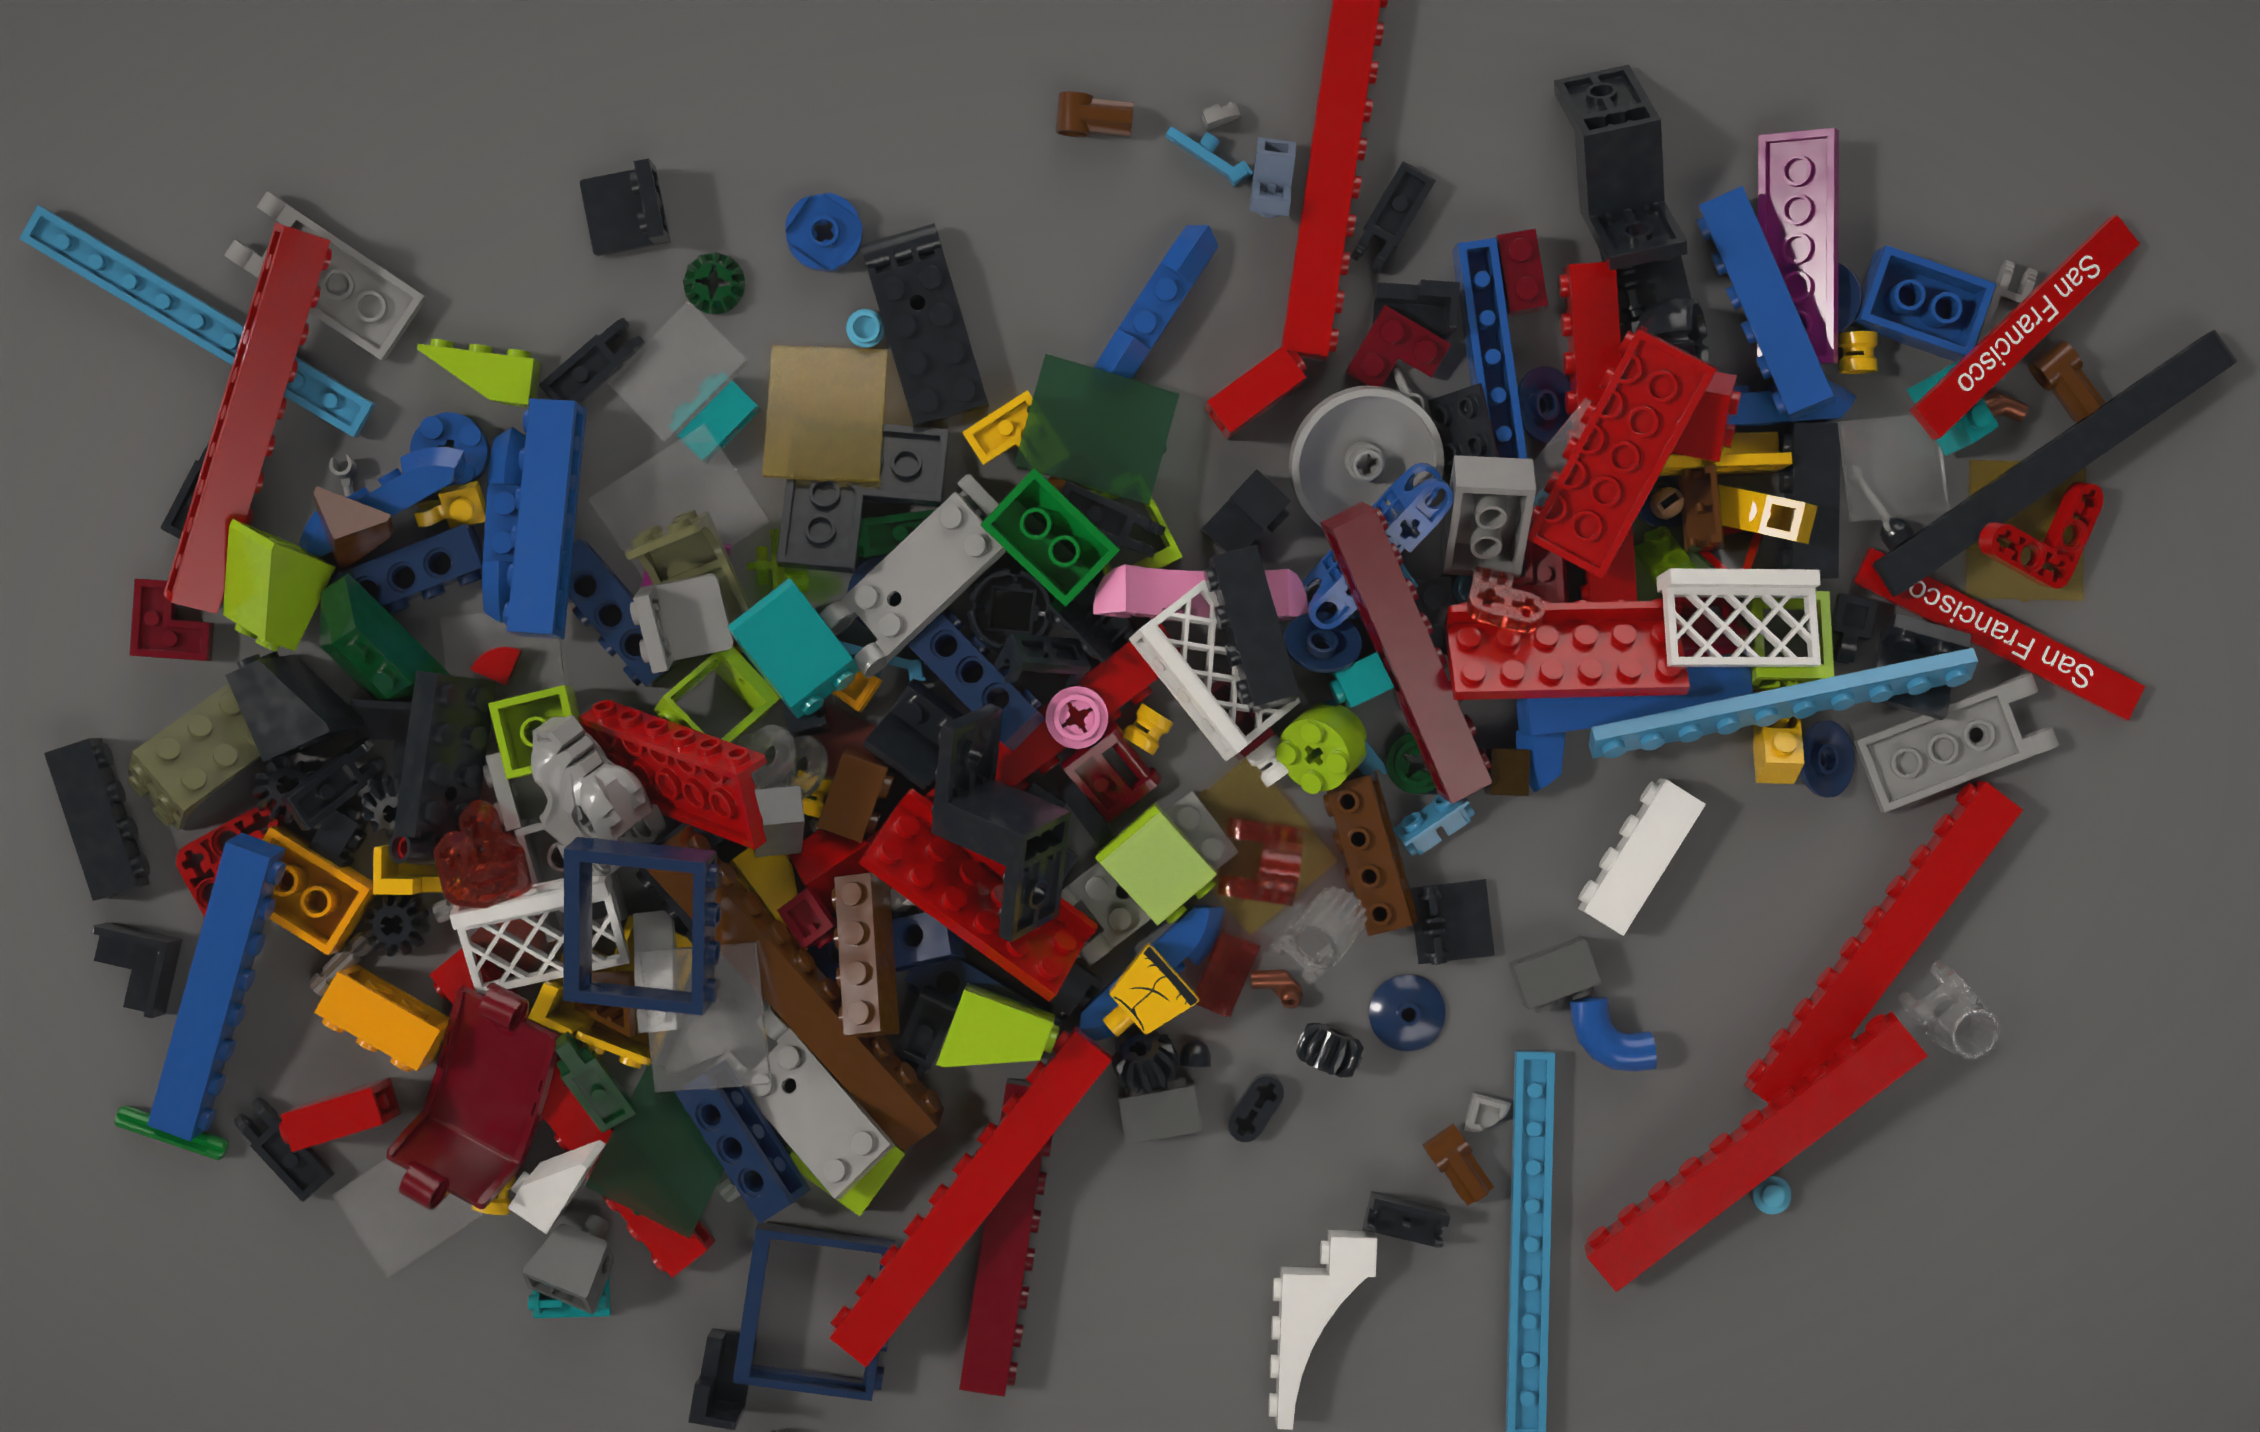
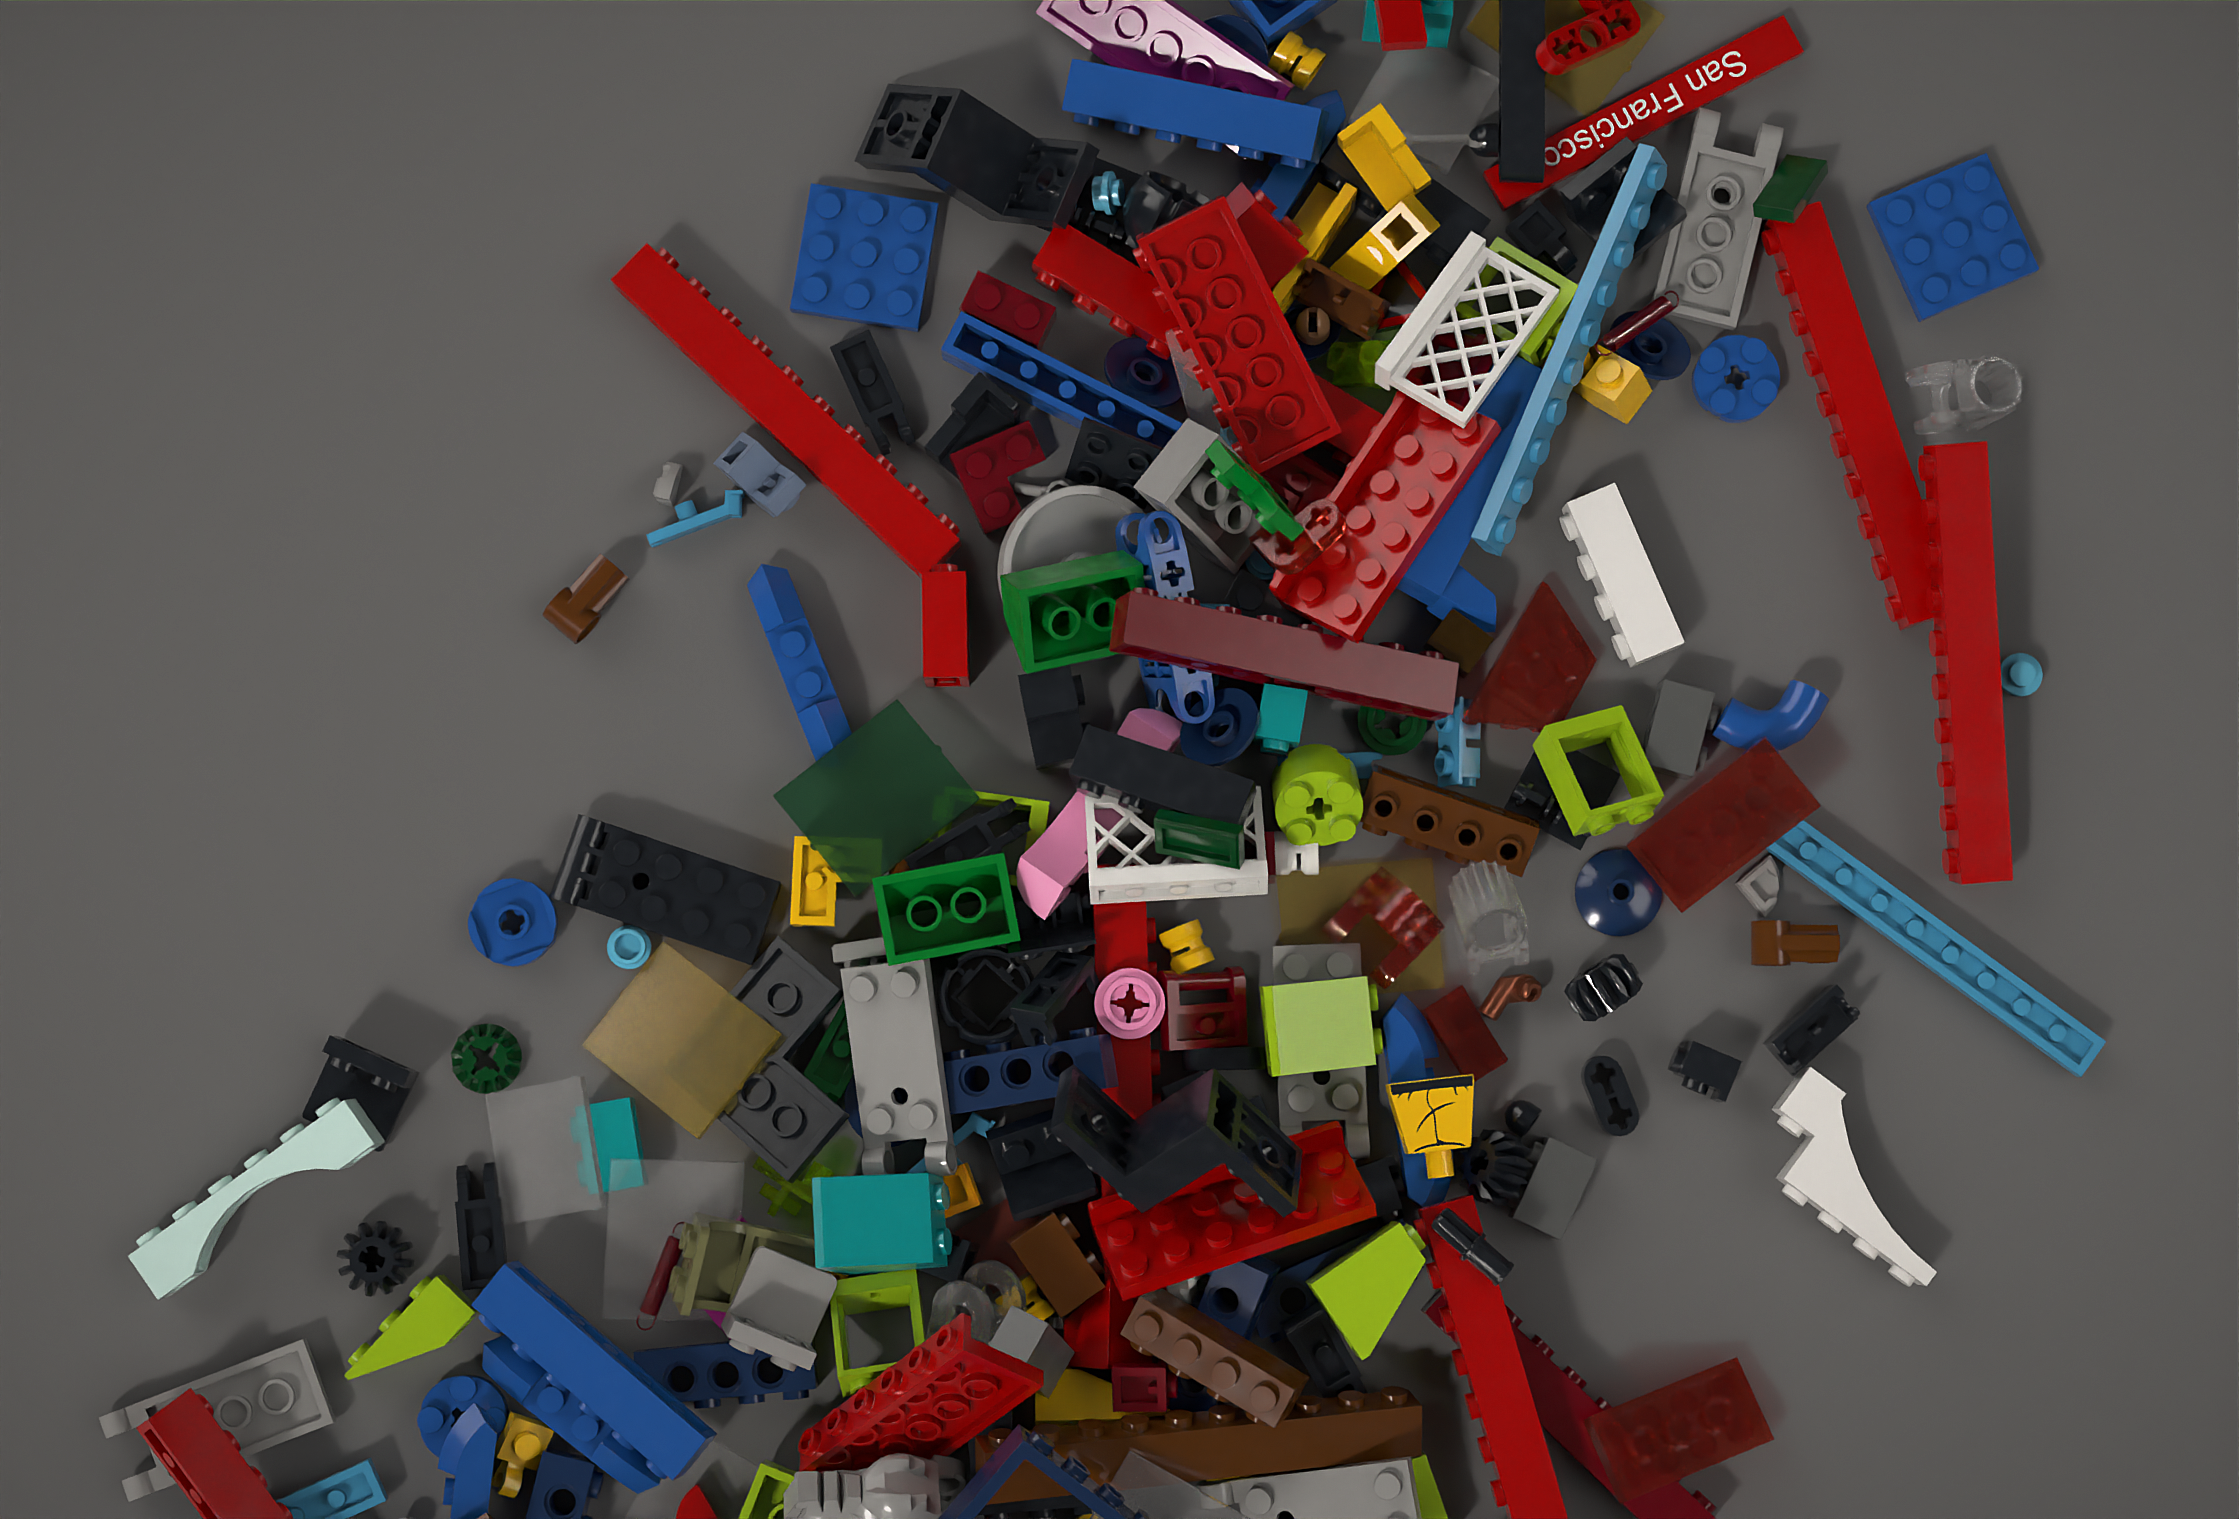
camera: 65 degrees left, 5 degrees down
(429, 165) = (184, 1249): none -> light aqua arch
(503, 303) = (364, 1269): none -> black gear
(644, 520) = (661, 1277): none -> dark red piece
(1049, 1322) = (1678, 1430): none -> clear red plate
(1074, 1085) = (1472, 1246): none -> black axle
(1229, 684) = (1199, 839): none -> dark green tile
(1322, 1163) = (1705, 1069): none -> black brick
(1330, 470) = (1067, 608): none -> green slope
(1487, 139) = (864, 257): none -> blue plate
(1509, 1055) = (1723, 824): none -> clear red plate
(1512, 545) = (1254, 491): none -> green plate
(1523, 931) = (1584, 731): none -> lime window
(1526, 841) = (1535, 670): none -> clear red wing
(1660, 283) = (1107, 193): none -> medium azure plate
(1829, 466) = (1383, 158): none -> yellow panel
(1836, 739) = (1637, 323): none -> dark red piece
(1847, 861) = (1723, 399): none -> blue plate
(2017, 781) = (1790, 188): none -> dark green tile
(2064, 925) = (1952, 237): none -> blue plate

